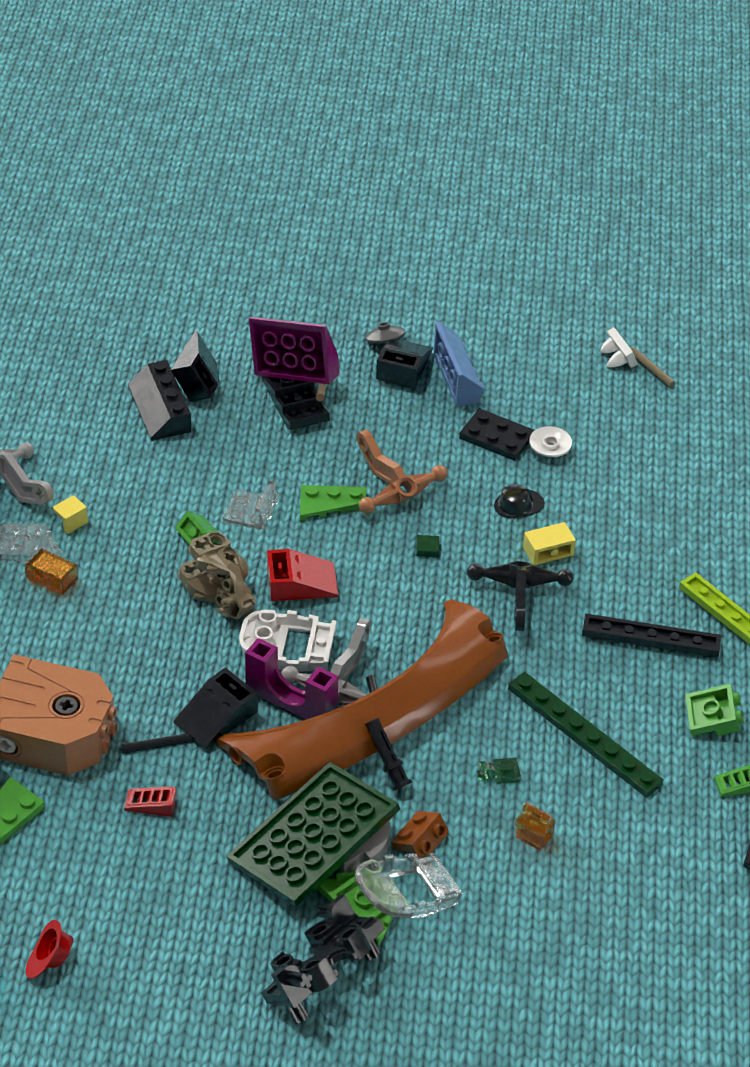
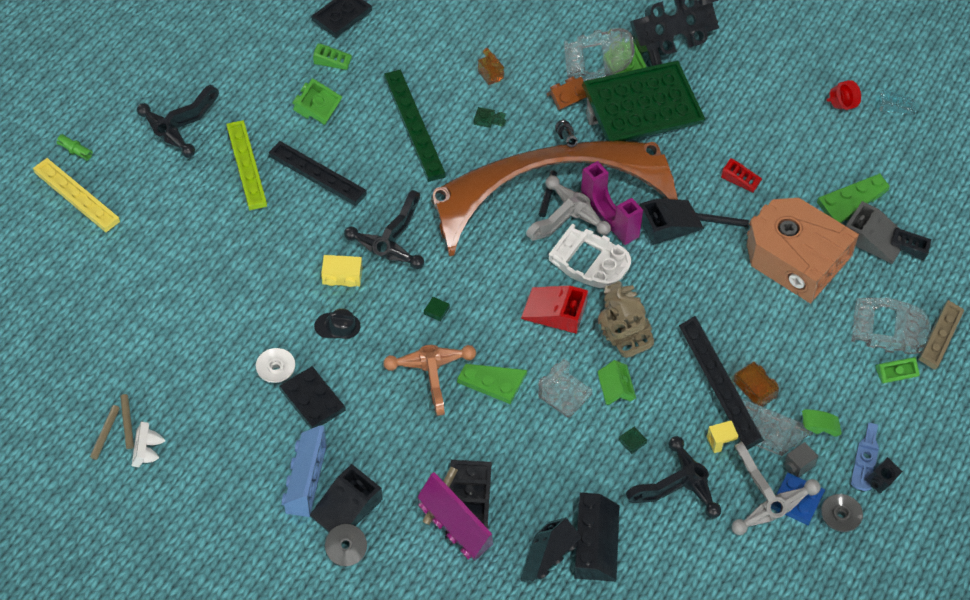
camera: 155 degrees left, 10 degrees up
(92, 559) = (721, 383): none -> black plate
(100, 455) = (691, 476): none -> black piece
(161, 493) = (632, 440): none -> clear green tile
(664, 354) = (104, 432): none -> dark tan bar

